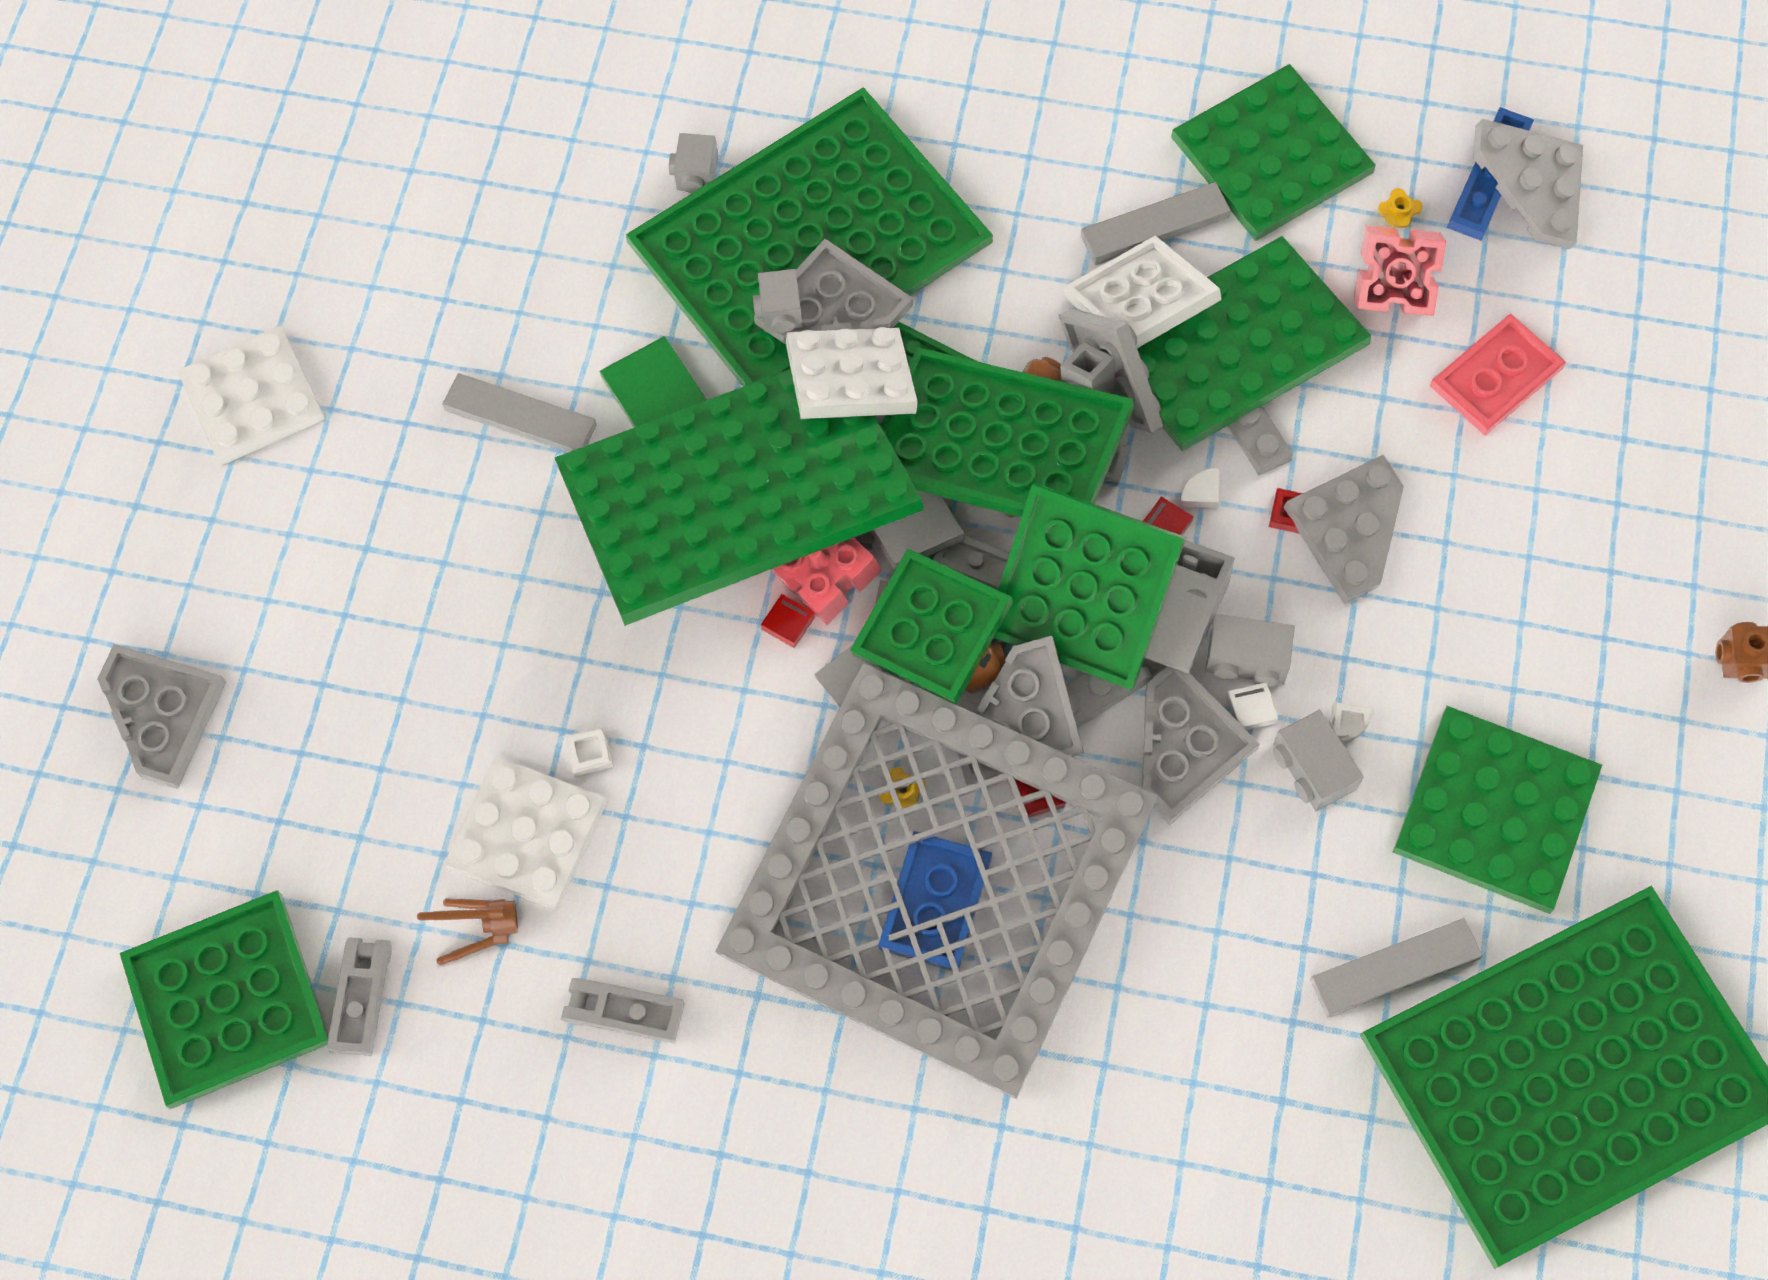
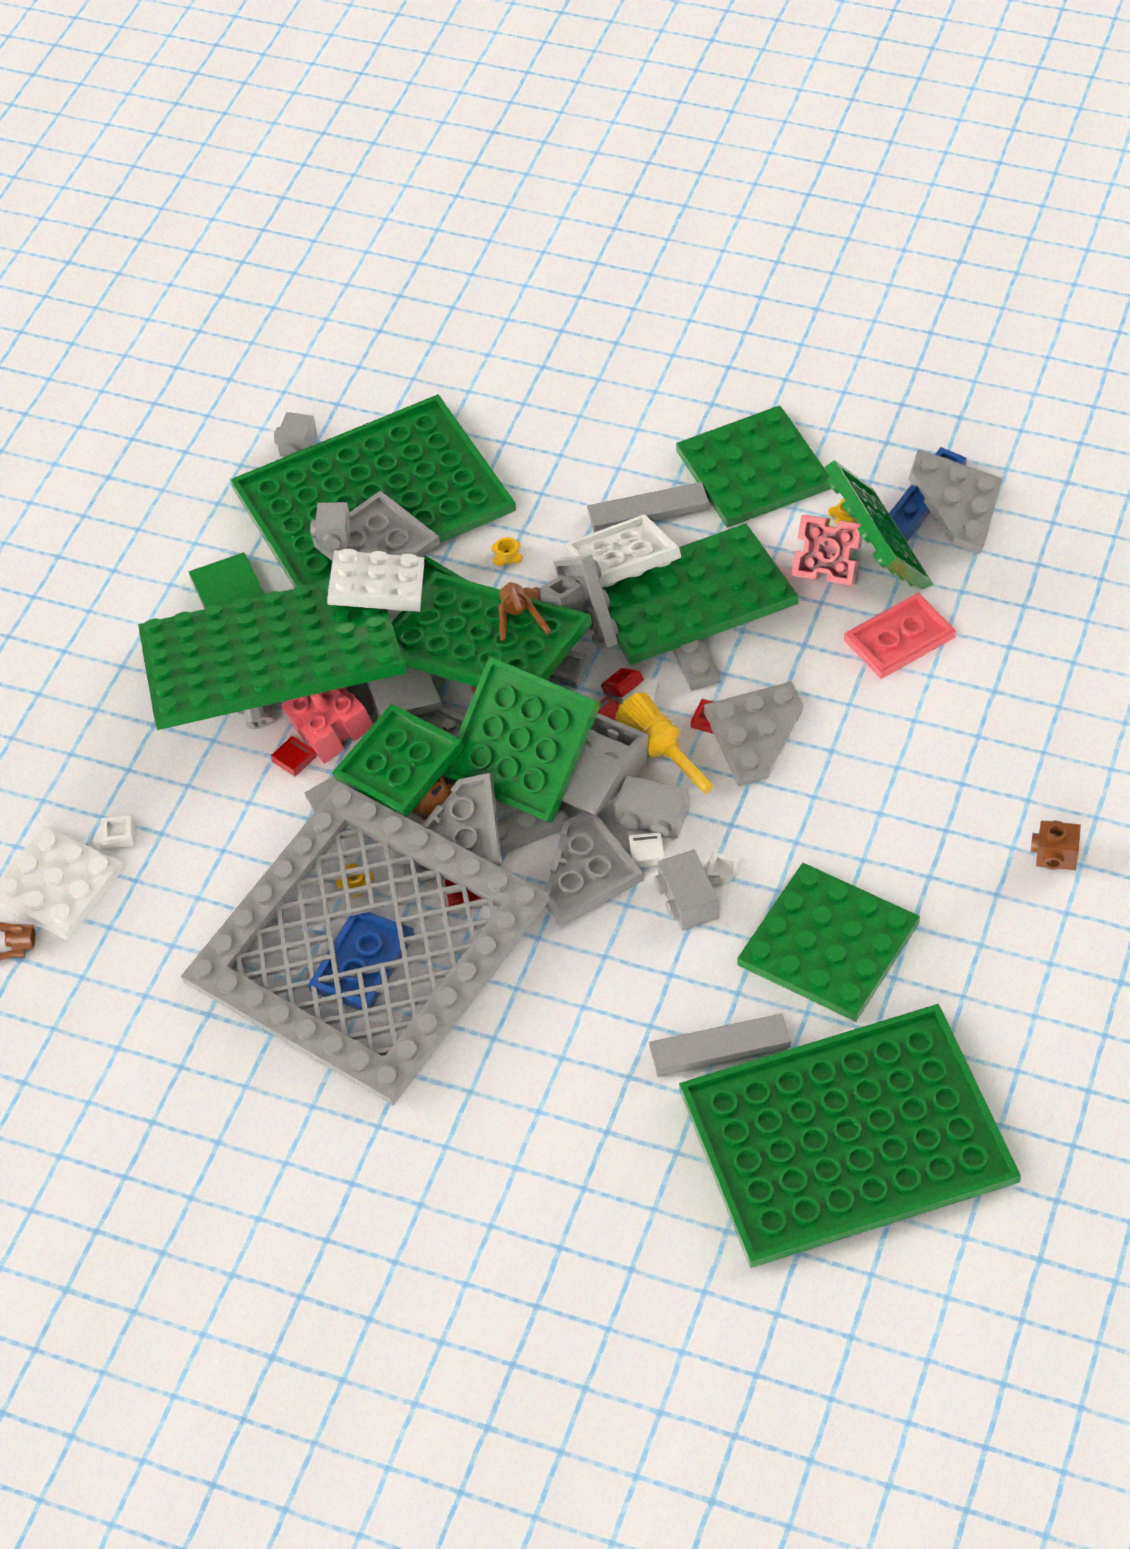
camera: 10 degrees right, 15 degrees down
(518, 414) = (118, 595): light grey tile -> none
(624, 1010) = (100, 1010): light grey plate -> none
(997, 295) = (506, 551): none -> yellow plate
(1038, 392) = (515, 602): none -> dark orange plant
(1176, 476) = (622, 682): none -> red tile
(1220, 530) = (643, 715): none -> yellow piece
(1454, 228) = (877, 526): none -> green plate

